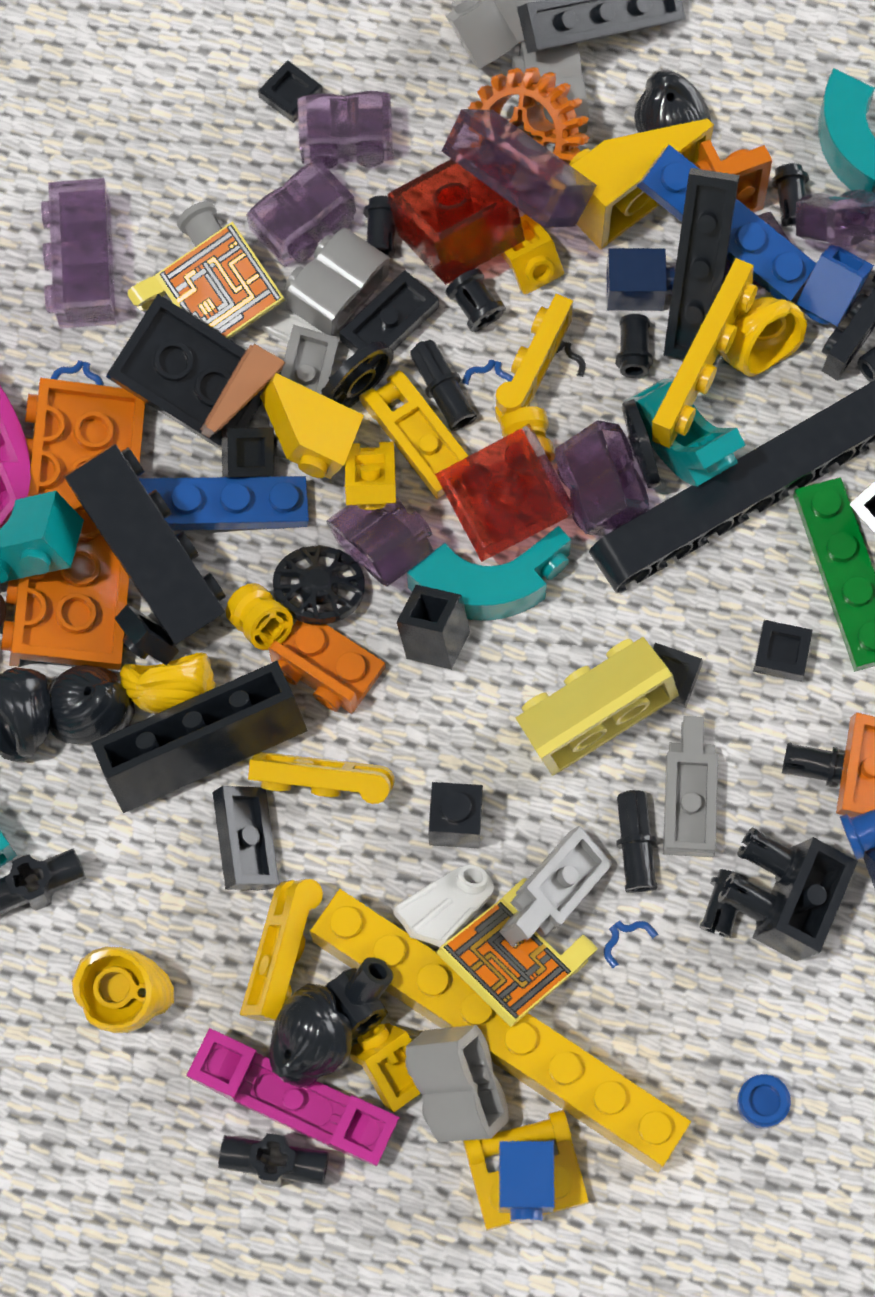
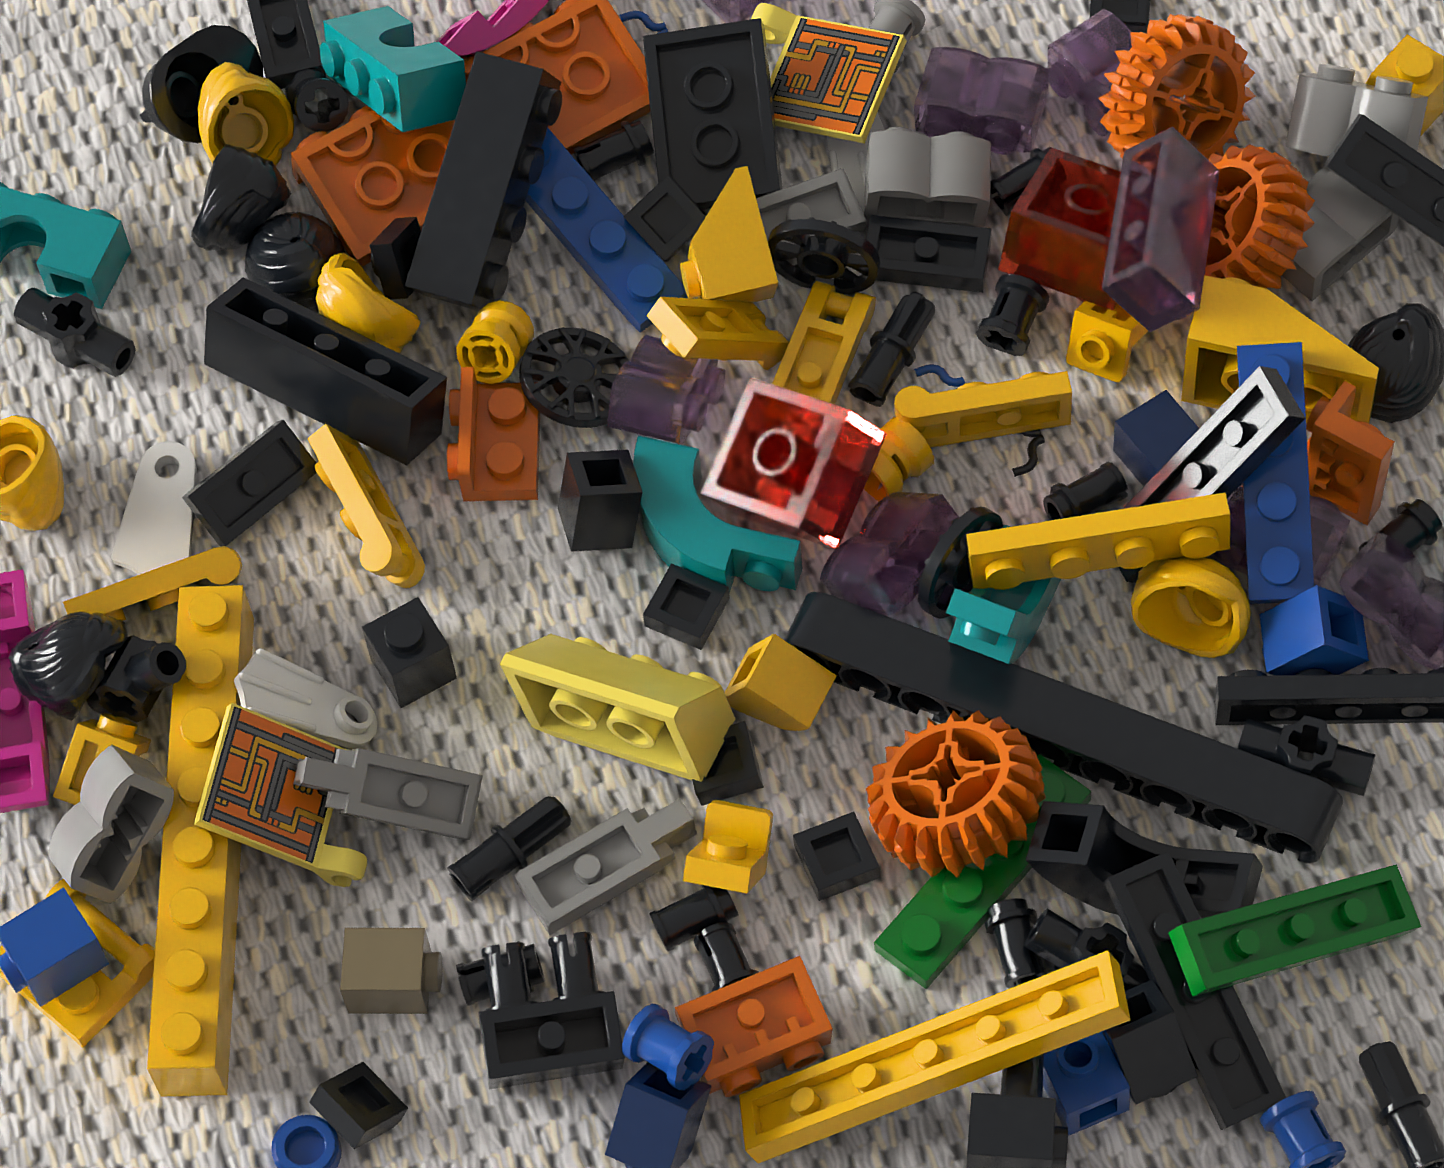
camera: 60 degrees right, 10 degrees down
(161, 449) = (615, 150): none -> black pin
(218, 915) = (156, 518): none -> white piece
(246, 381) = (718, 156): nougat slope -> none
(406, 98) = (1179, 60): none -> orange gear
(541, 626) = (686, 606): none -> black plate
(625, 928) = (394, 896): blue piece -> none
(638, 606) = (779, 685): none -> yellow brick
(679, 970) = (388, 971): none -> dark tan brick
(739, 710) = (732, 847): none -> yellow bracket
(761, 1048) = (358, 1105): none -> black plate
(764, 759) = (693, 914): none -> black pin
(809, 535) = (955, 793): none -> orange gear

